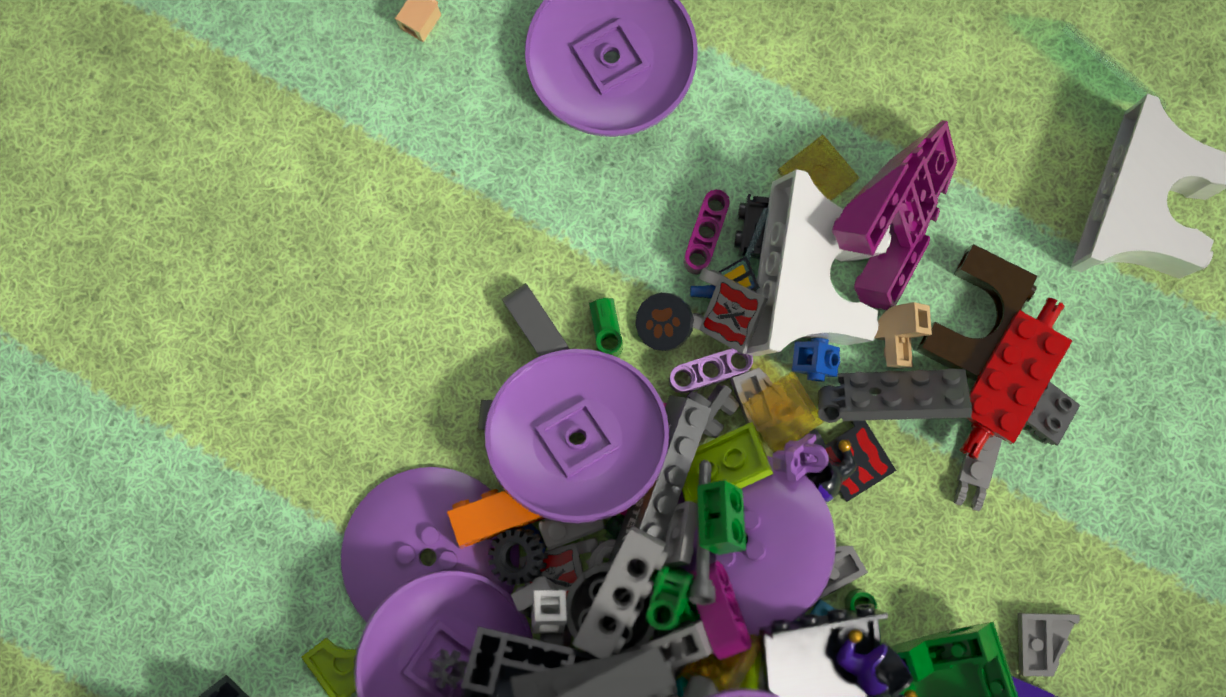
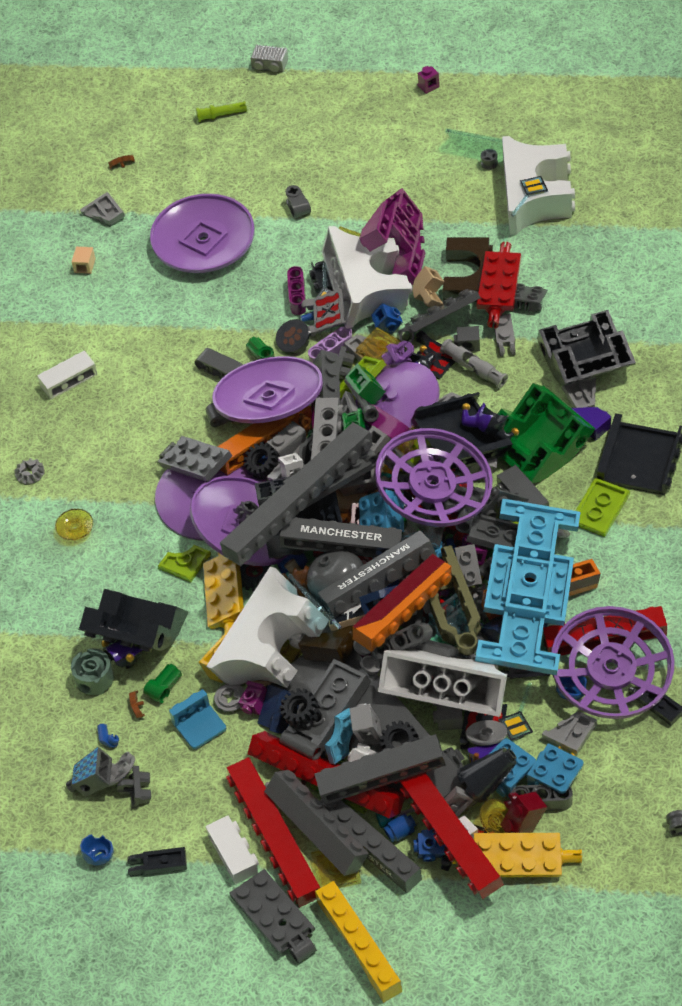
camera: 20 degrees left, 30 degrees down
(197, 520) = (74, 518): none -> clear yellow dish
(200, 394) = (25, 476): none -> light grey gear
(308, 232) = (67, 375): none -> white brick
(417, 521) = (194, 458): none -> dark grey hinge
(779, 57) = (297, 202): none -> dark grey piece
(918, 527) = (480, 367): none -> light grey piece
(919, 454) = (468, 338): none -> dark grey brick
(1086, 576) = (585, 349): none -> black slope
(1109, 99) = (489, 159): none -> dark grey wheel
(1150, 226) = (531, 187): none -> piece

